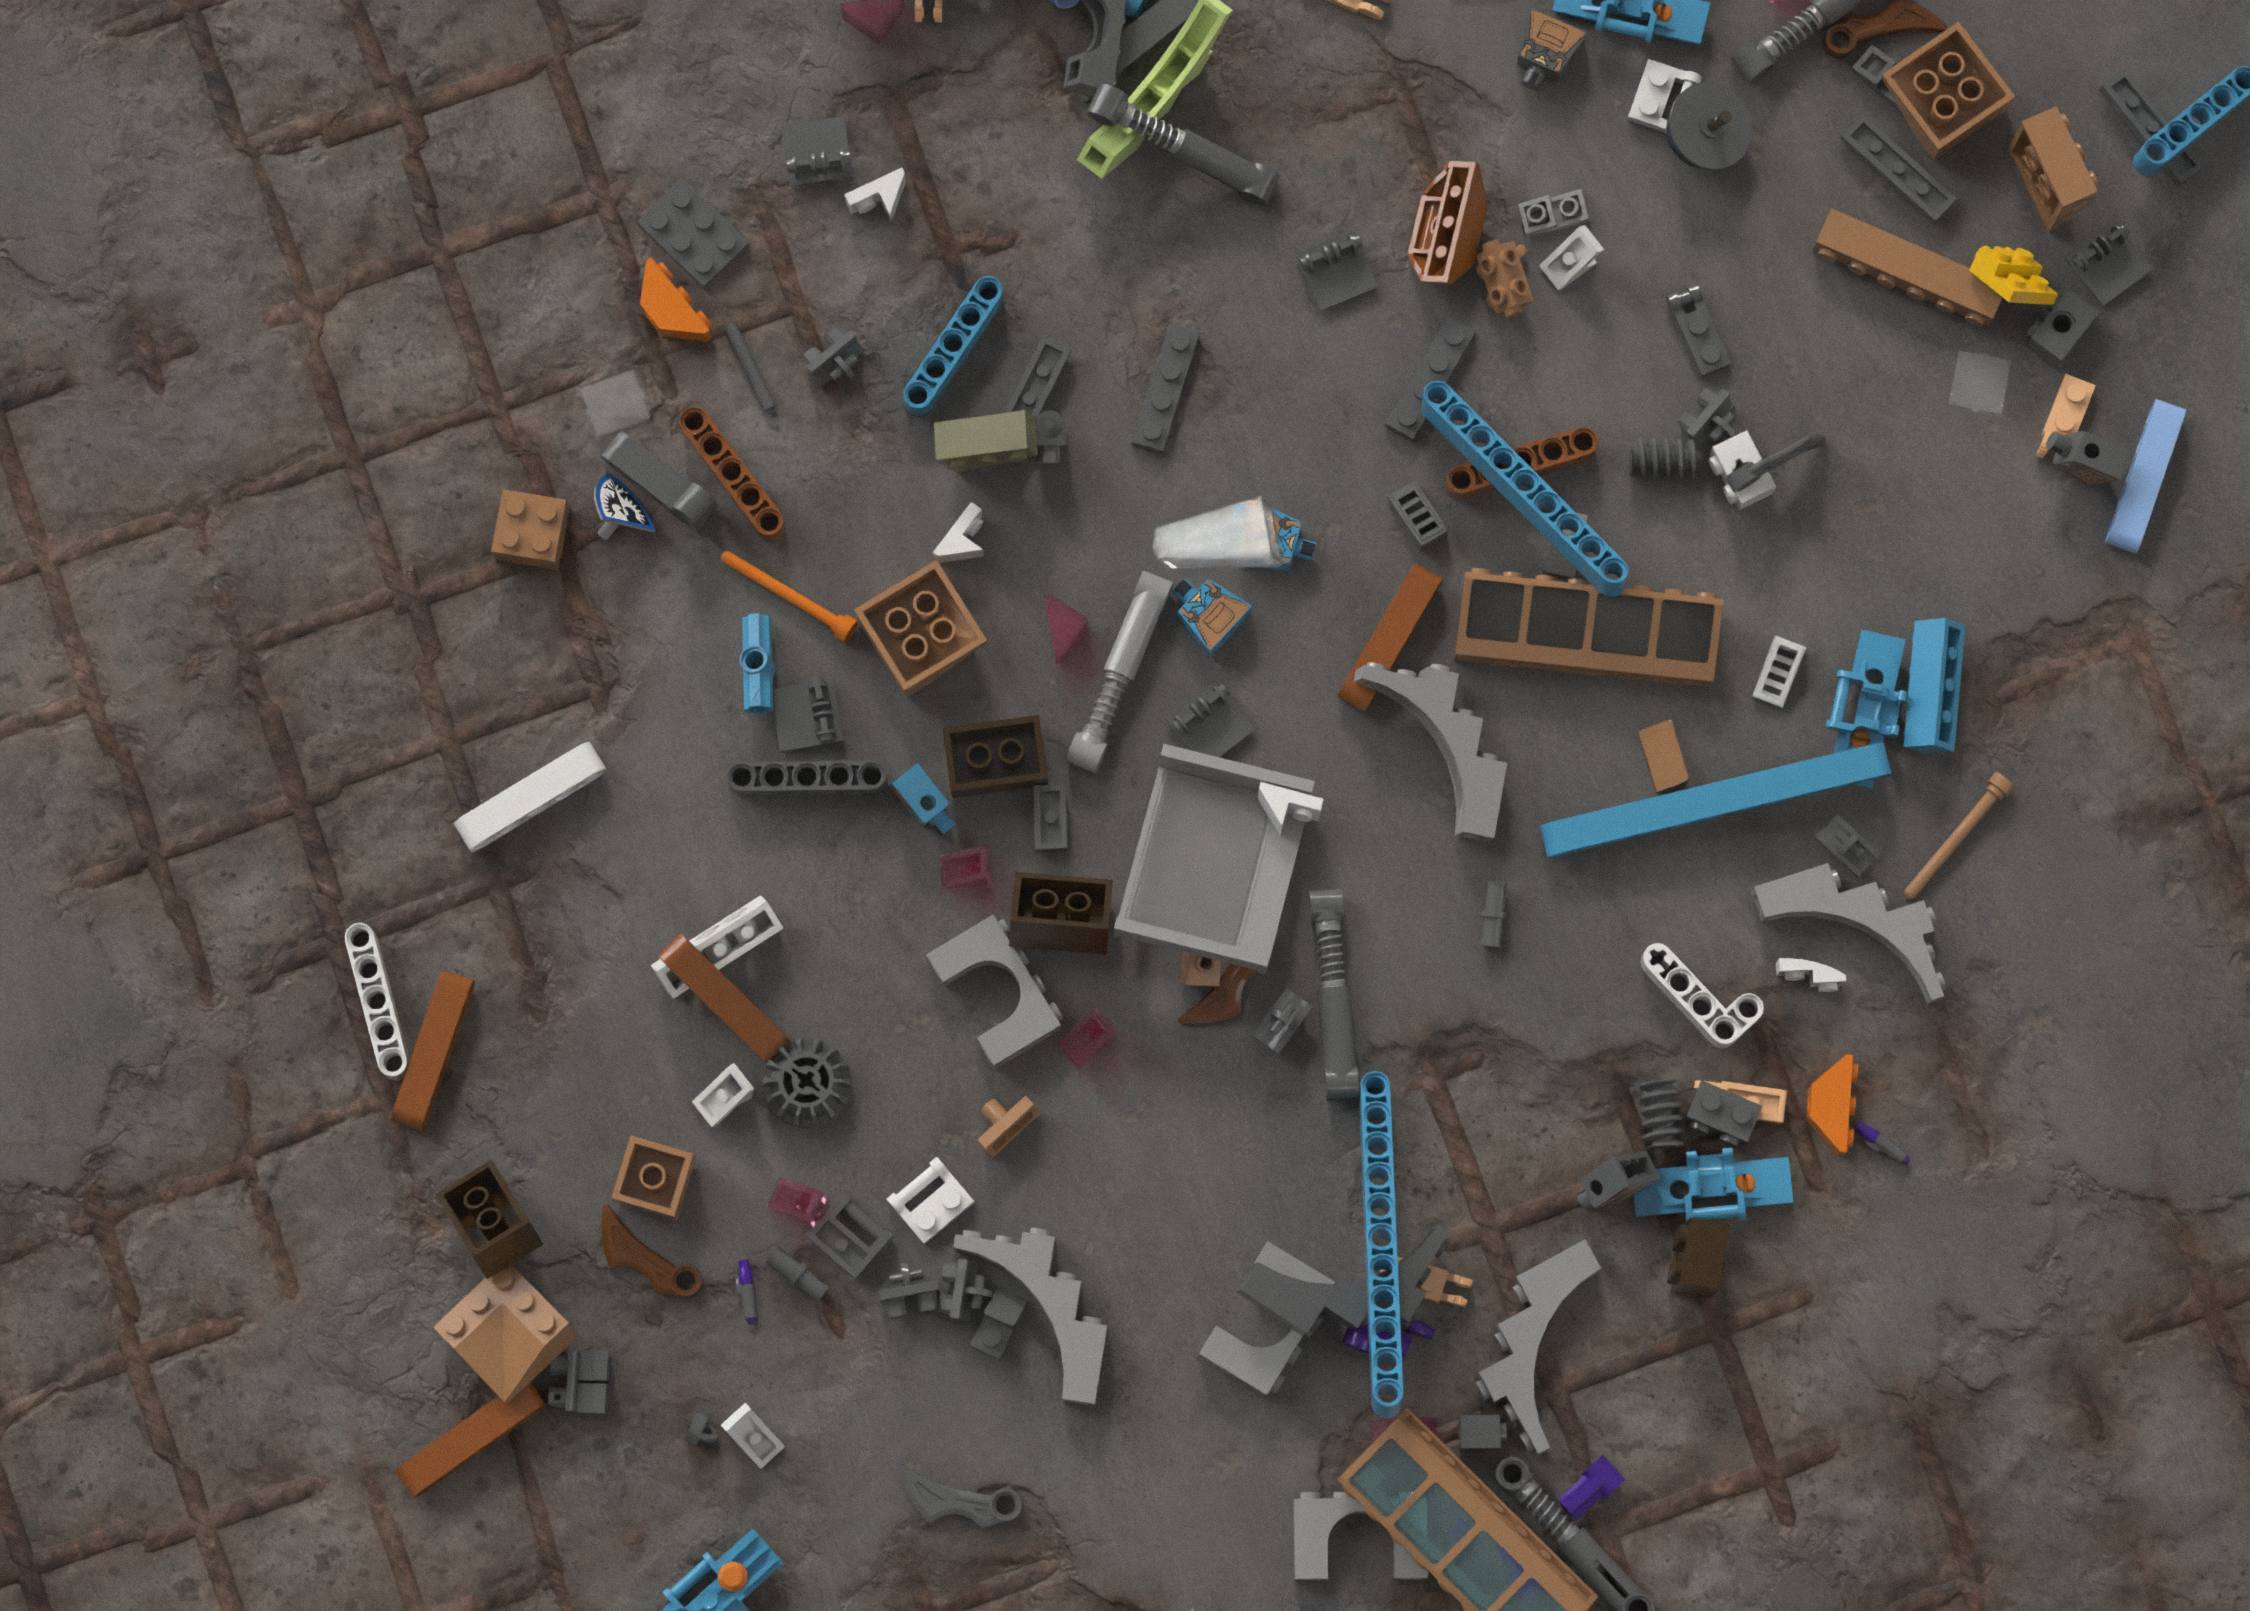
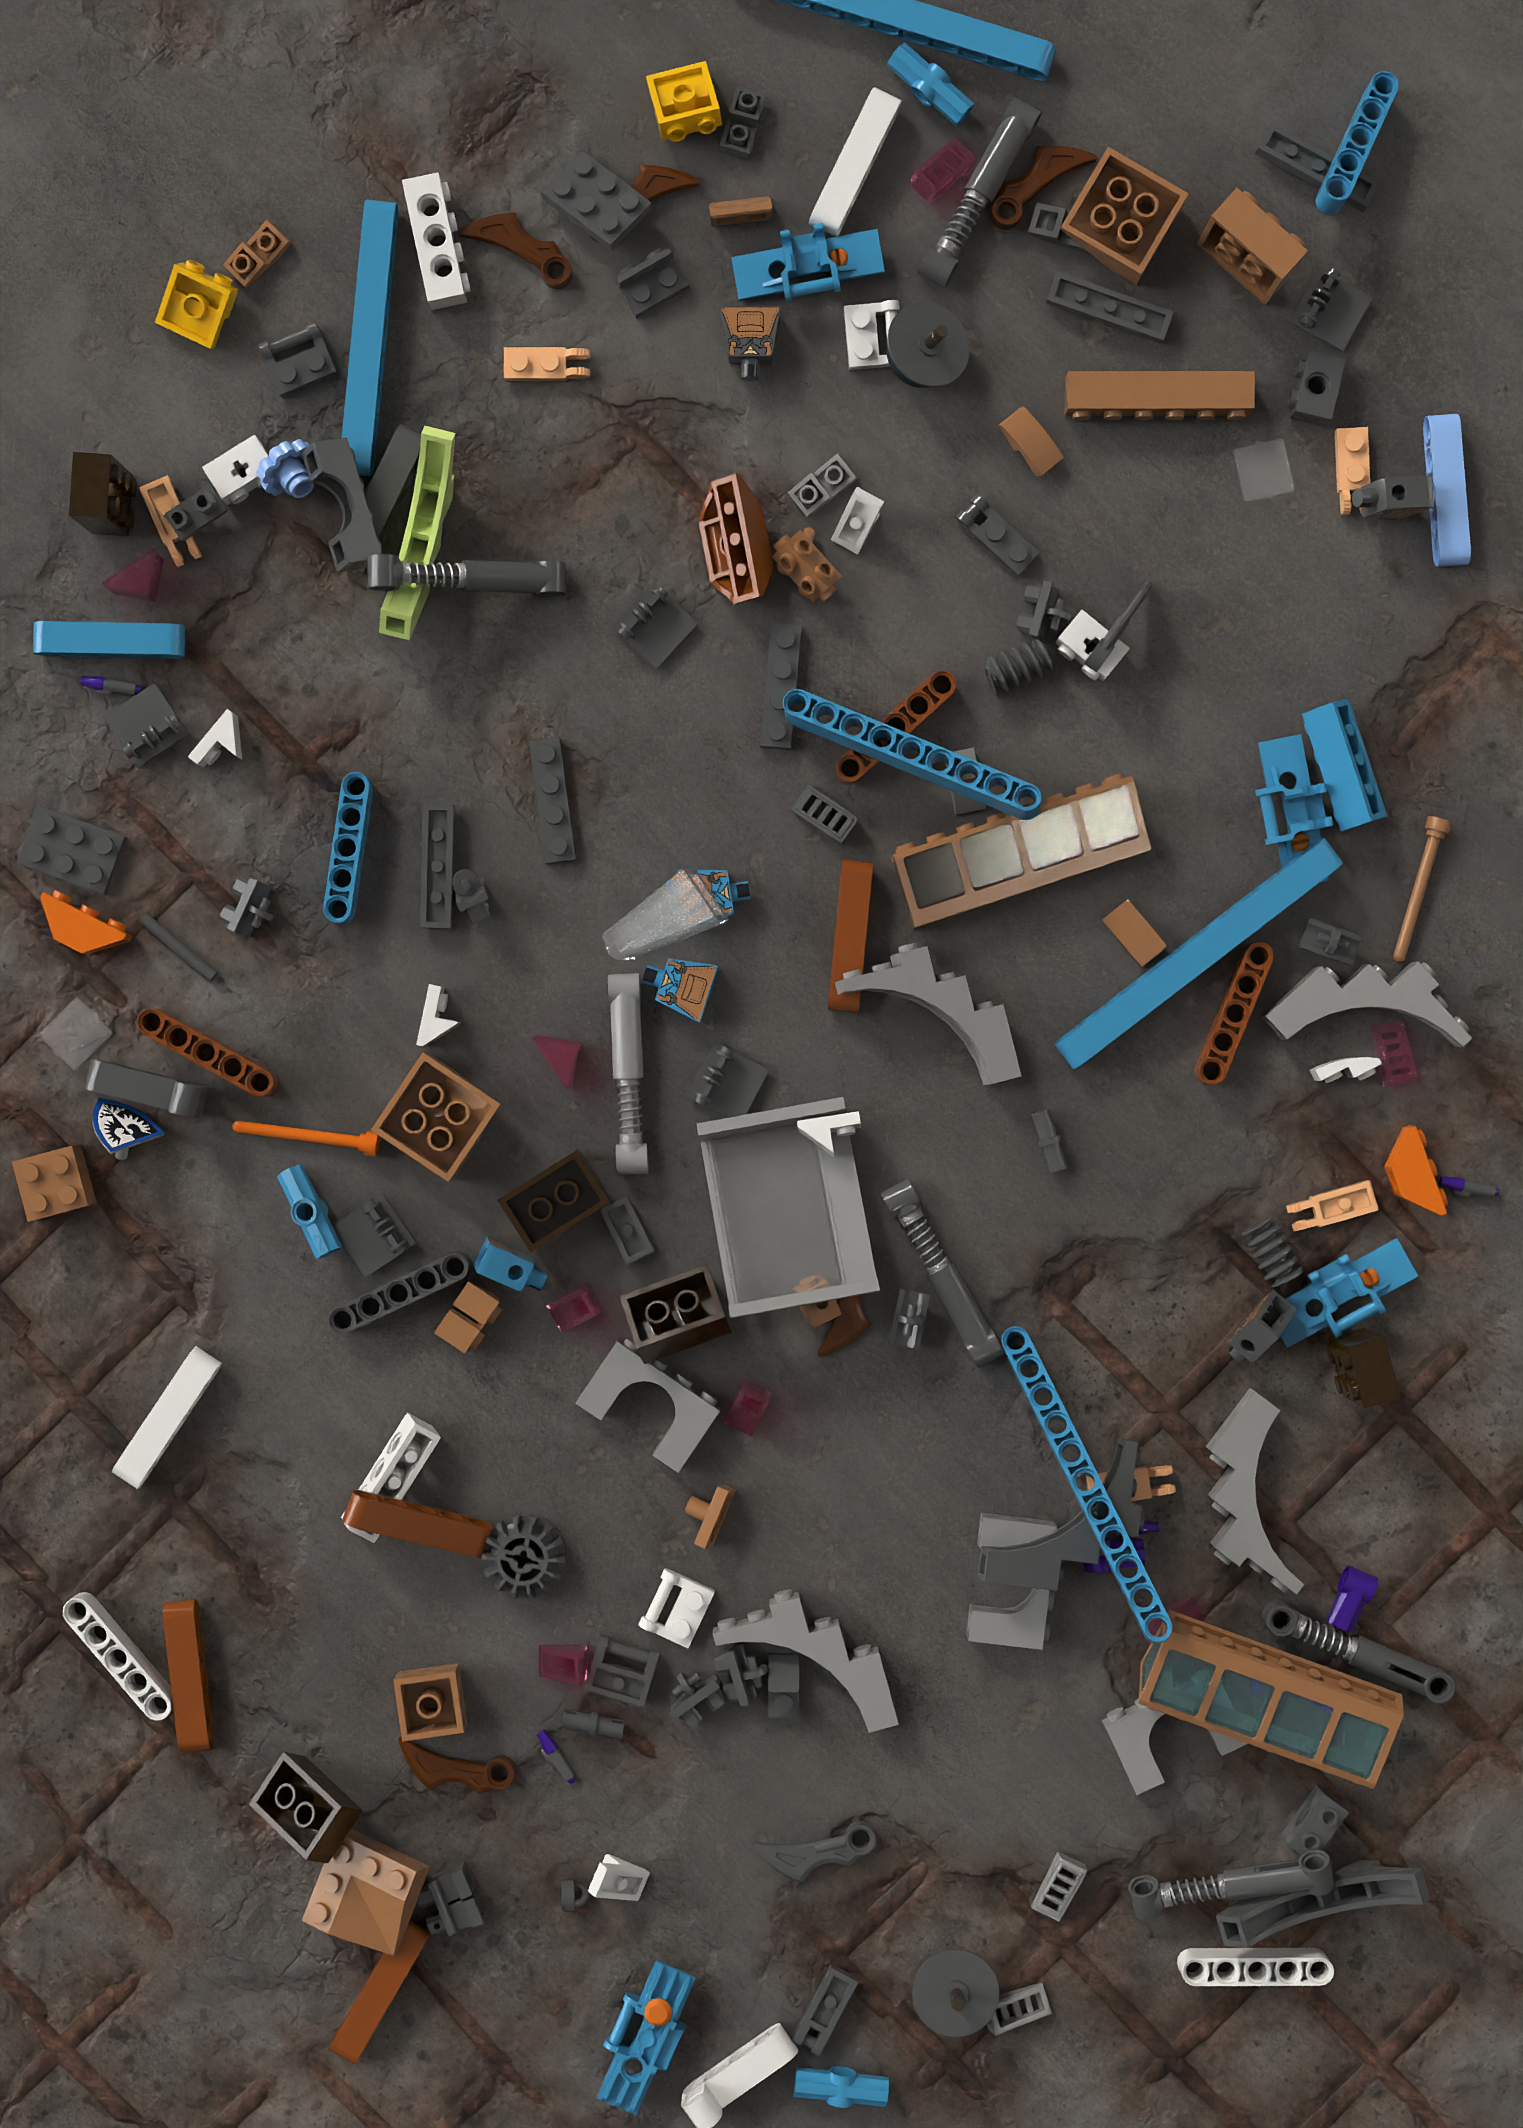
camera: 30 degrees left, 10 degrees up
(723, 1095) = (457, 1602): white slope -> none
(800, 101) = (109, 686): none -> piece
(820, 58) = (109, 639): none -> dark azure beam
(848, 840) = (460, 1329): none -> medium nougat piece
(985, 440) = (416, 927): olive wedge -> none
(1481, 1432) = (1237, 1594): dark grey brick -> none
(1697, 991) = (1253, 1129): white beam -> none
(1723, 1114) = (1325, 1226): dark grey bracket -> none
(1736, 862) = (1244, 1002): none -> dark orange beam
(1770, 257) = (1031, 440): none -> medium nougat slope
(1772, 655) = (1189, 786): white slope -> none
(1860, 1008) = (1405, 1050): none -> clear pink slope
(2013, 275) = (1256, 361): yellow plate -> none

